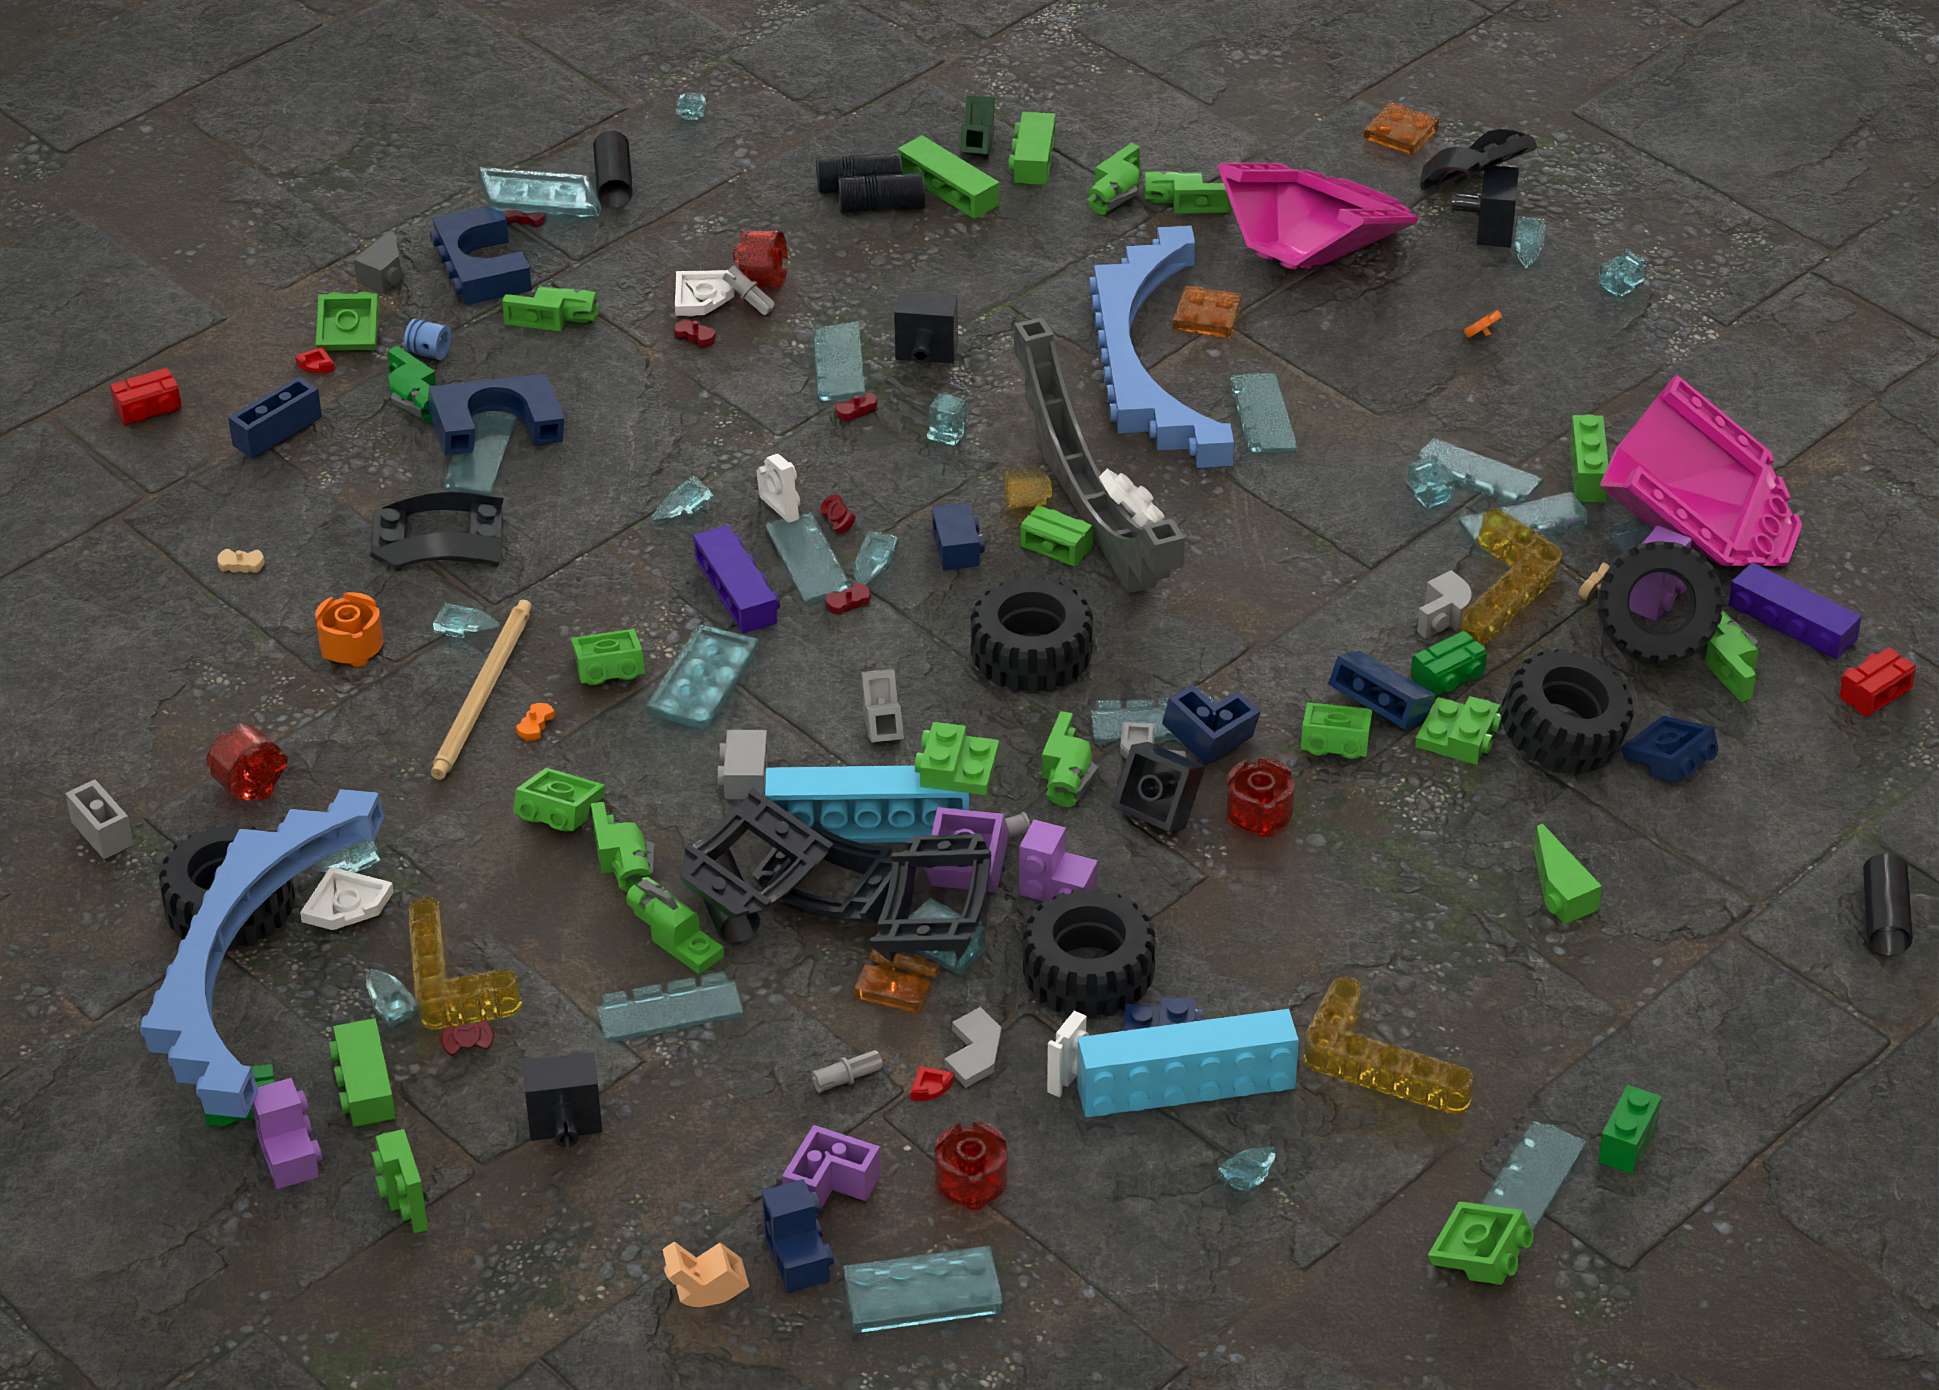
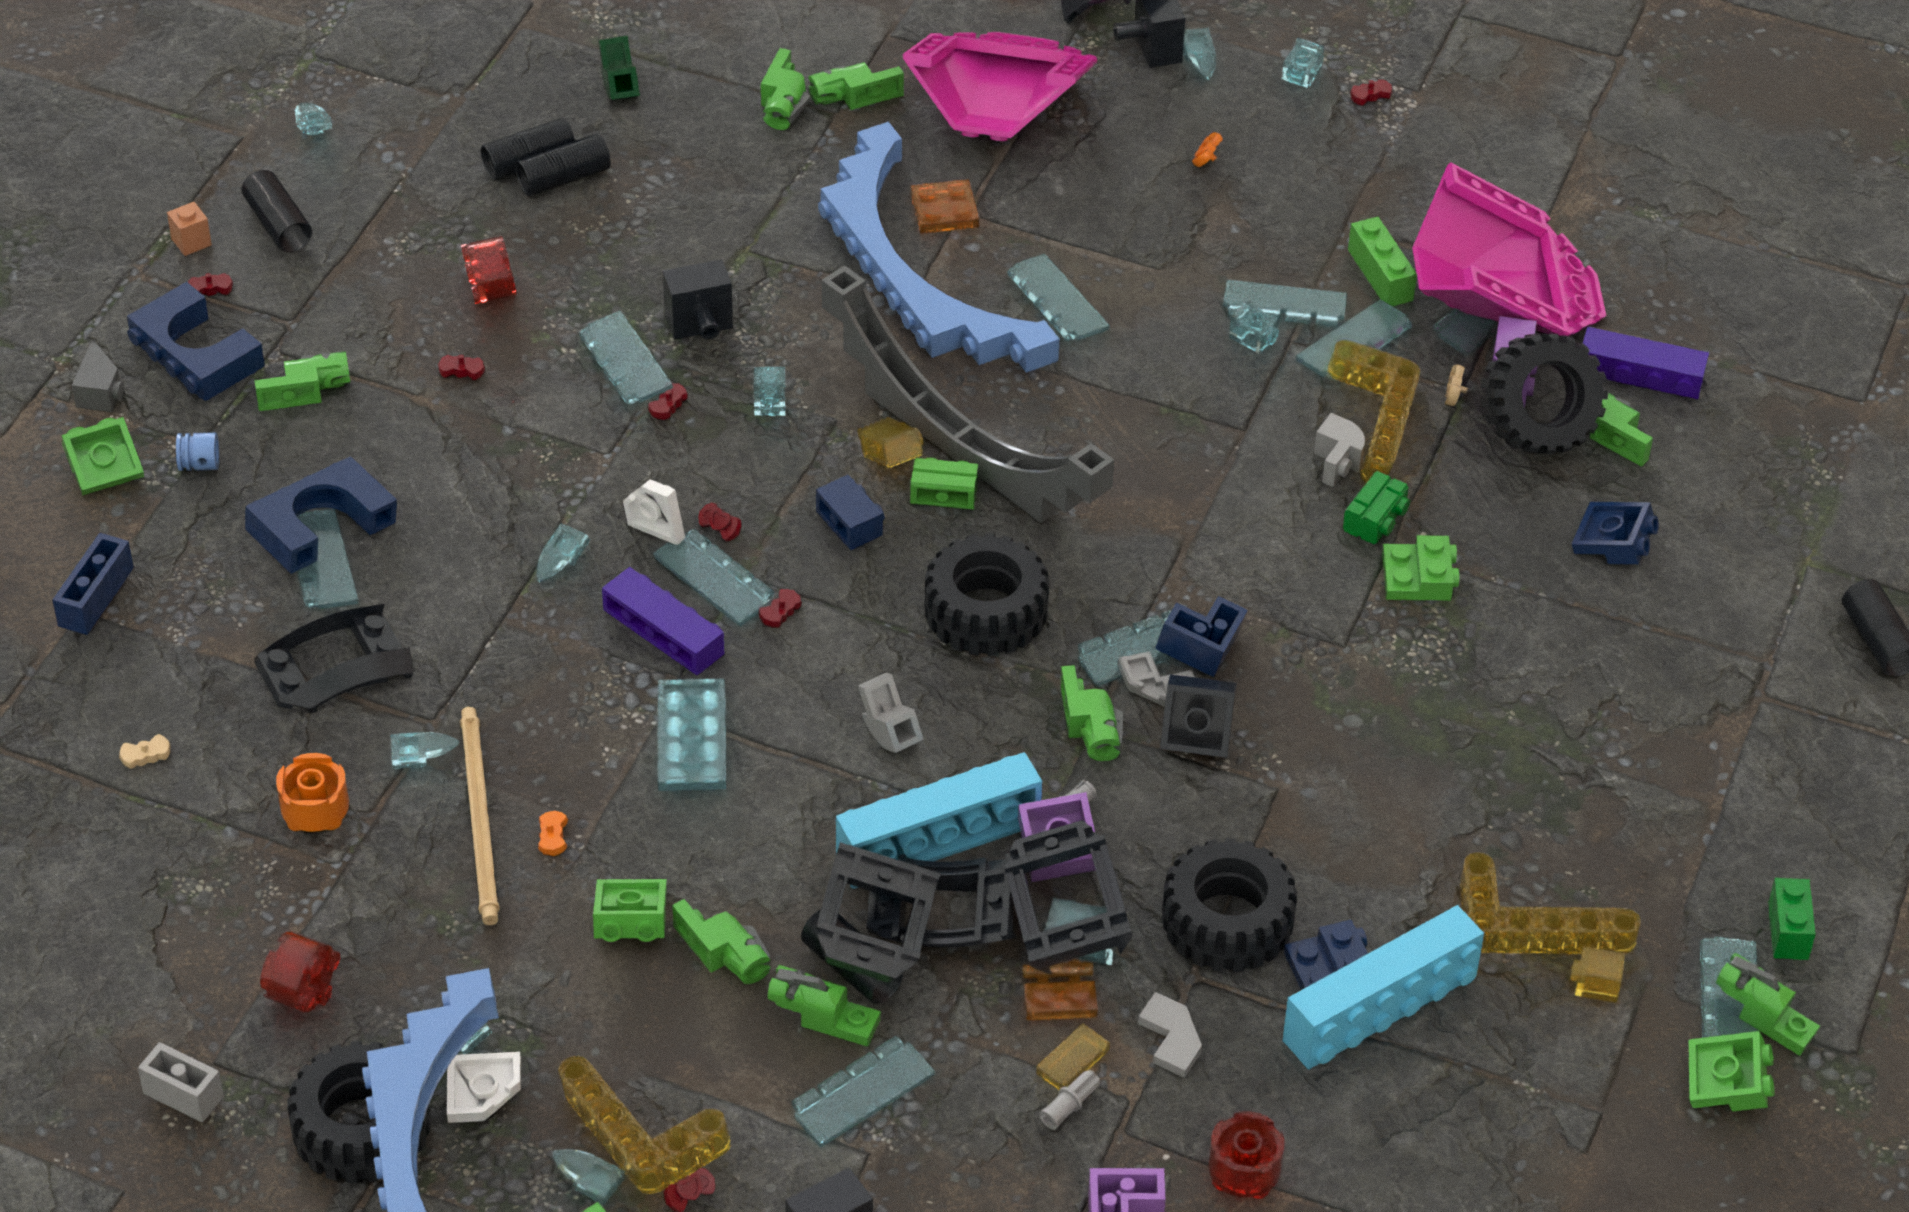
camera: 25 degrees left, 5 degrees up
(315, 361) = (89, 508): red tile -> none
(410, 382) = (210, 505): green plate -> none
(531, 157) = (189, 228): none -> nougat brick
(538, 192) = (219, 257): clear light blue plate -> none
(608, 656) = (588, 741): bright green plate -> none
(701, 292) = (444, 319): white plate -> none
(744, 763) = (789, 814): light grey brick -> none
(749, 291) = (495, 307): light grey axle -> none
(874, 555) = (782, 556): clear light blue plate -> none
(880, 1035) = (1073, 1057): none -> clear yellow tile
(930, 1083) = (1151, 1084): red tile -> none
(950, 177) = (622, 129): bright green brick -> none
(956, 760) = (1016, 751): bright green plate -> none
(1033, 148) = (682, 77): bright green brick -> none
(1048, 868) = (1147, 833): medium lavender brick -> none
(1063, 1053) = (1273, 1015): white plate -> none
(1134, 499) = (1000, 424): white plate -> none
(1247, 1167) = (1487, 1070): clear light blue plate -> none
(1260, 796) = (1289, 695): clear red brick -> none
(1336, 730) = (1315, 605): bright green plate -> none
(1381, 689) = (1334, 552): dark blue brick -> none
(1408, 1119) = (1598, 974): none -> clear yellow brick
(1554, 1193) = (1766, 1004): none -> bright green plate
(1558, 738) = (1504, 549): black tyre -> none
(1565, 883) = (1595, 692): bright green slope -> none
(1677, 314) = (1371, 91): none -> dark red piece
(1877, 681) = (1750, 411): red brick -> none

